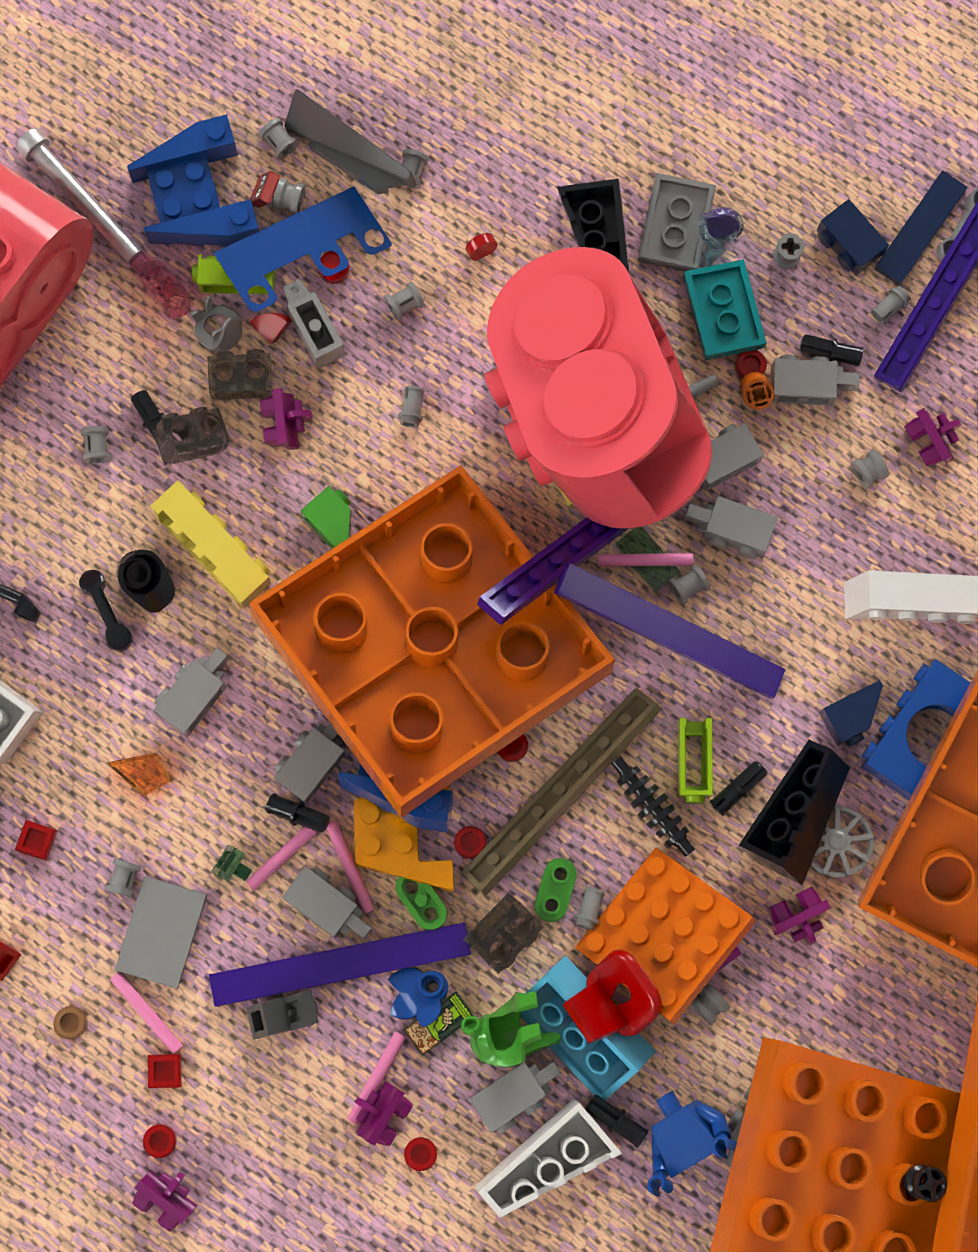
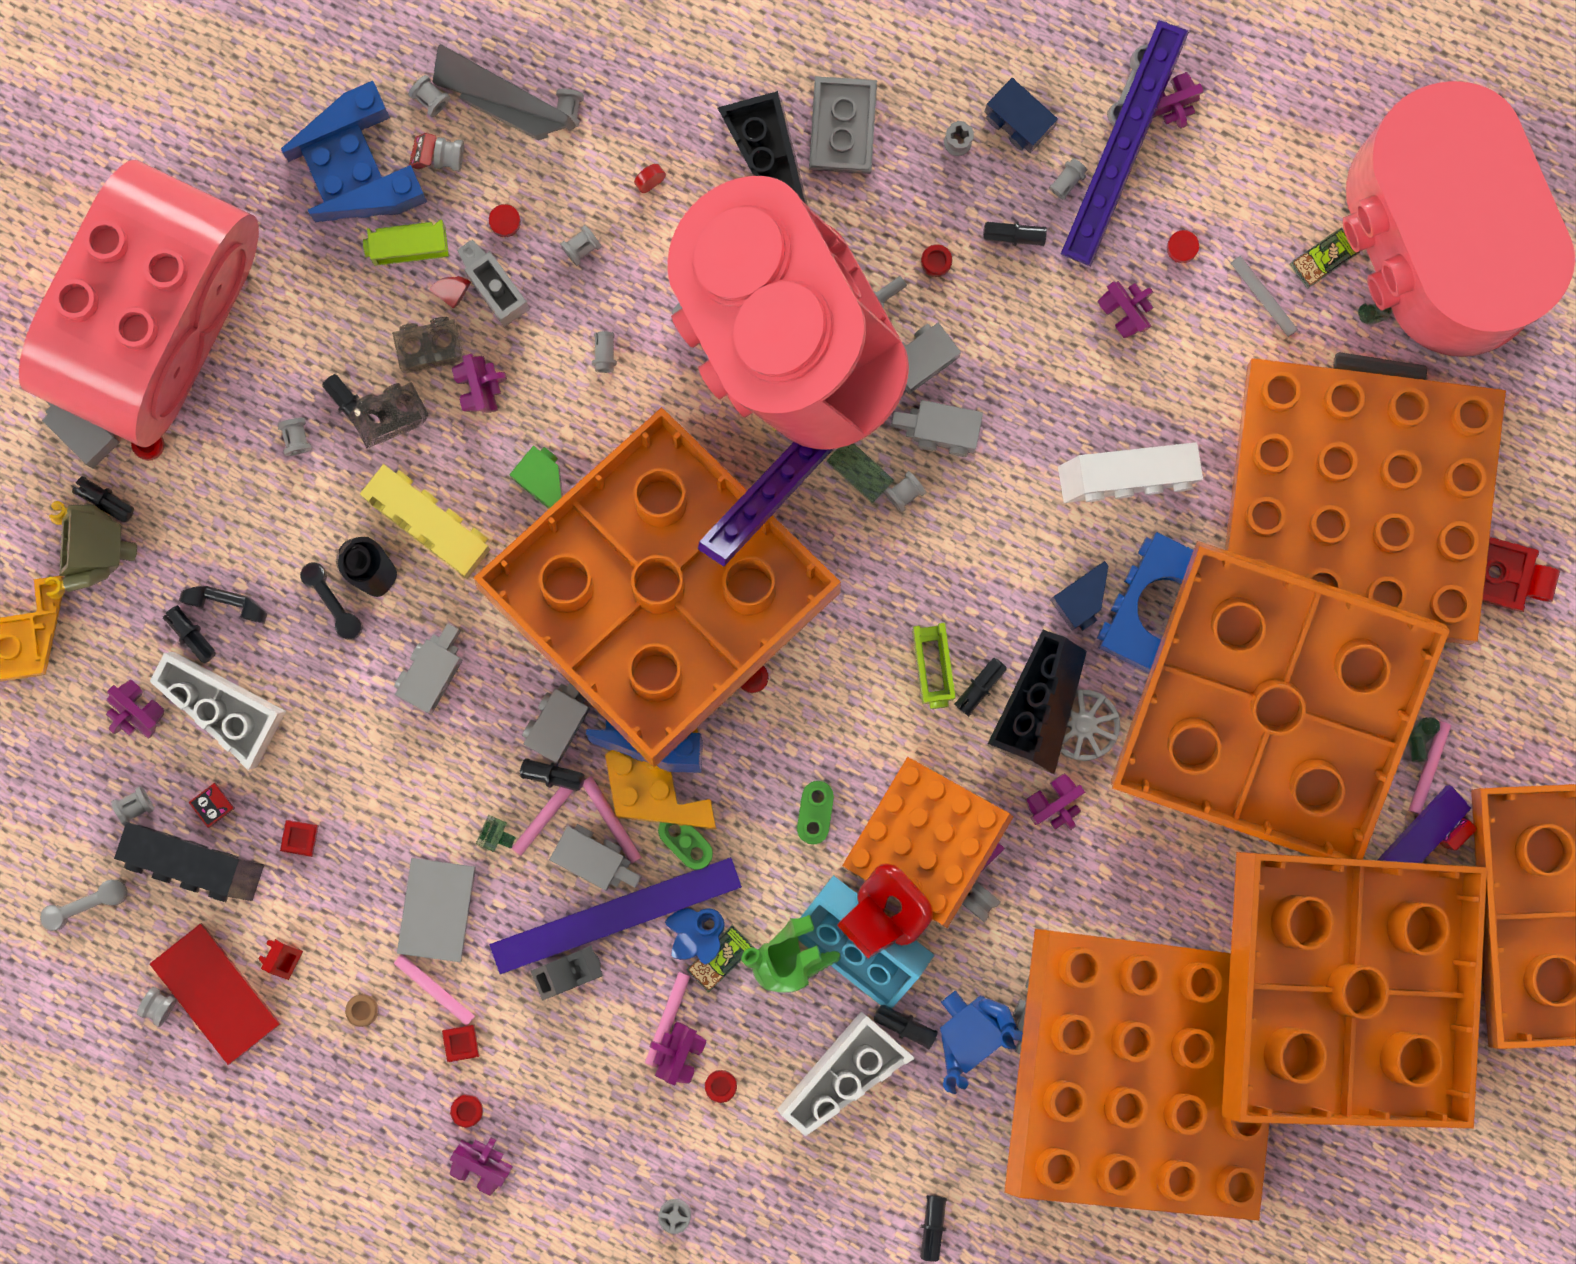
camera: 10 degrees left, 5 degrees up
(35, 146) = (184, 140): flat silver piece -> none
(123, 878) = (390, 863): light grey bush -> none
(142, 772) = (393, 756): clear orange piece -> none
(220, 339) = (408, 307): light grey piece -> none
(296, 236) = (469, 191): blue piece -> none
(469, 842) = (725, 778): red tile -> none
(498, 928) = (764, 858): clear smoke brick -> none
(512, 1094) = (801, 1016): light grey hinge -> none
(560, 791) = (807, 715): dark tan plate -> none
(589, 908) = (851, 826): light grey pin -> none
(649, 559) = (858, 473): bright pink bar -> none
(652, 806) = (898, 716): black piece -> none
(669, 630) = (890, 543): dark purple tile -> none
(723, 226) = (889, 122): clear light blue piece -> none
(724, 309) = (902, 208): teal plate -> none
(752, 386) = (943, 280): orange wheel -> none
(810, 381) = (997, 269): light grey hinge -> none
(870, 469) = (1068, 349): light grey wheel -> none
(920, 228) = (1088, 94): dark blue tile -> none
(933, 1186) = (1215, 1047): black wheel -> none

